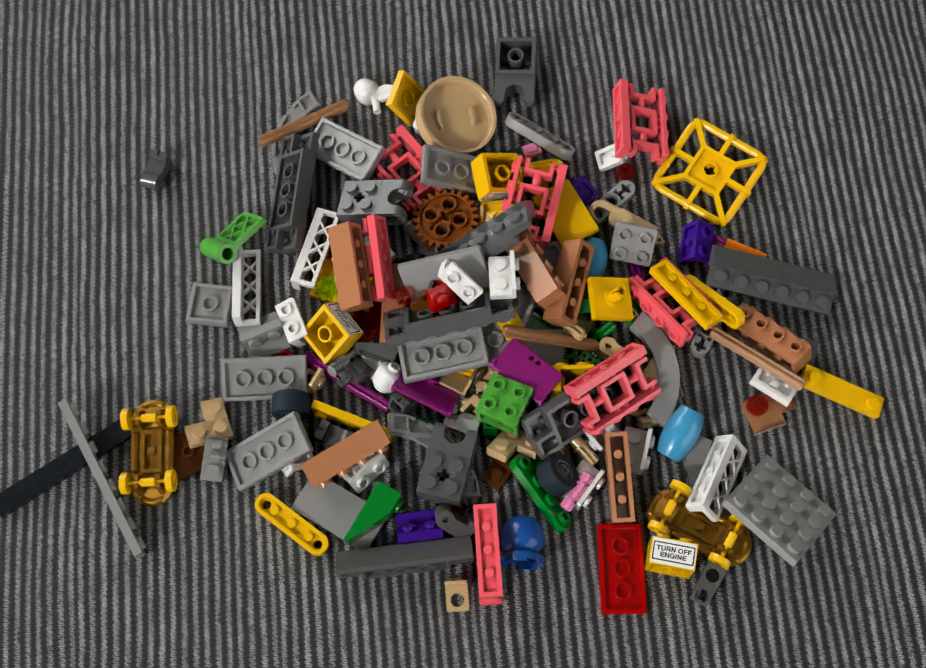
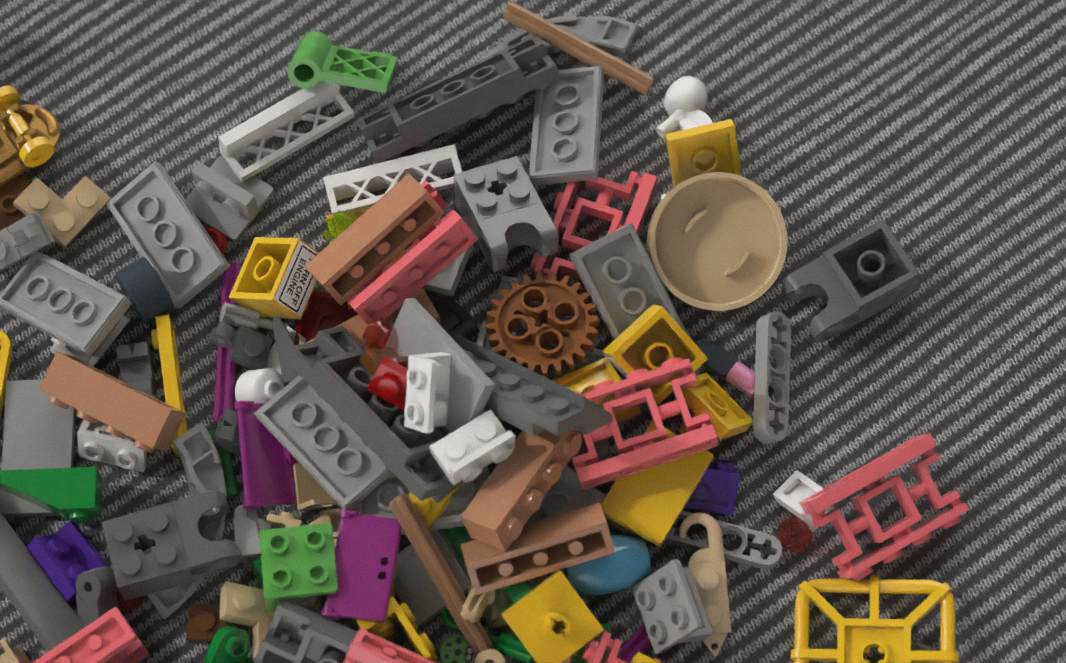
camera: 60 degrees right, 0 degrees up
(209, 305) = (230, 97): light grey plate -> none
(292, 322) = (263, 217): white bracket -> none
(317, 381) = (204, 302): tan bracket -> none

